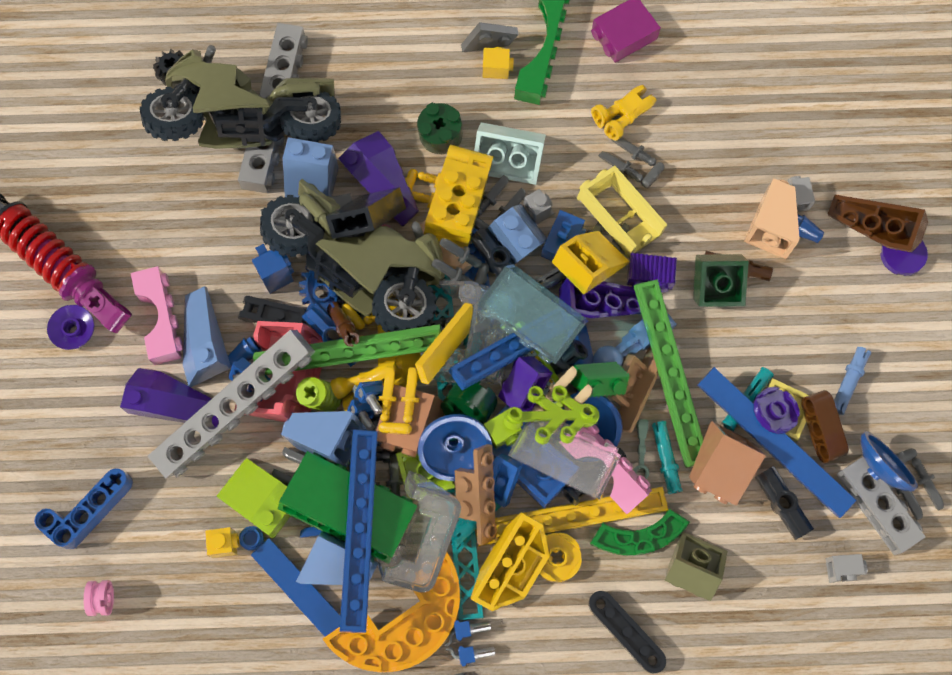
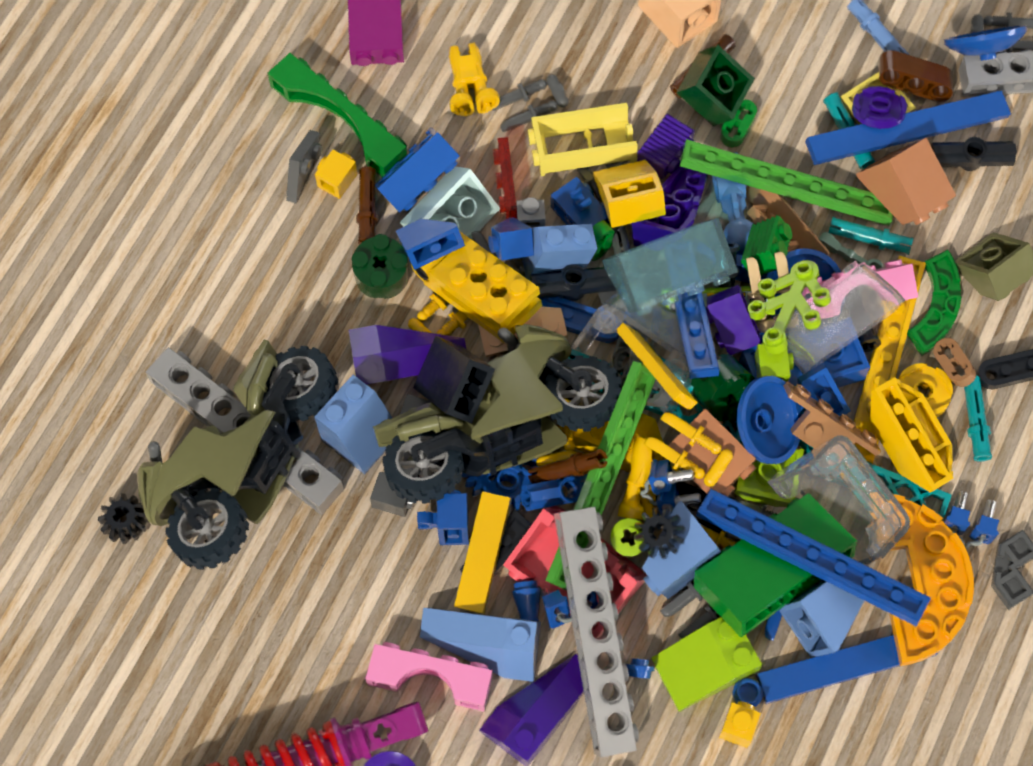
camera: 60 degrees left, 5 degrees down
(231, 452) = (639, 668): none -> blue plate
(259, 303) = (483, 552): none -> yellow tile
(312, 403) = (655, 523): none -> black gear
(464, 255) = (557, 309): dark grey piece -> none
(465, 142) = (429, 240): none -> blue slope
(477, 99) = (367, 197): none -> reddish brown pin
(501, 196) = (511, 240): none -> blue slope
(527, 112) = (417, 171): none -> blue wedge
(532, 624) = (978, 430): none -> teal pin
(542, 261) = (603, 236): none -> green beam
(558, 175) = (504, 178): none -> clear red plate
(589, 567) = (958, 359): none -> medium nougat beam
(705, 320) = (742, 125): none -> green beam

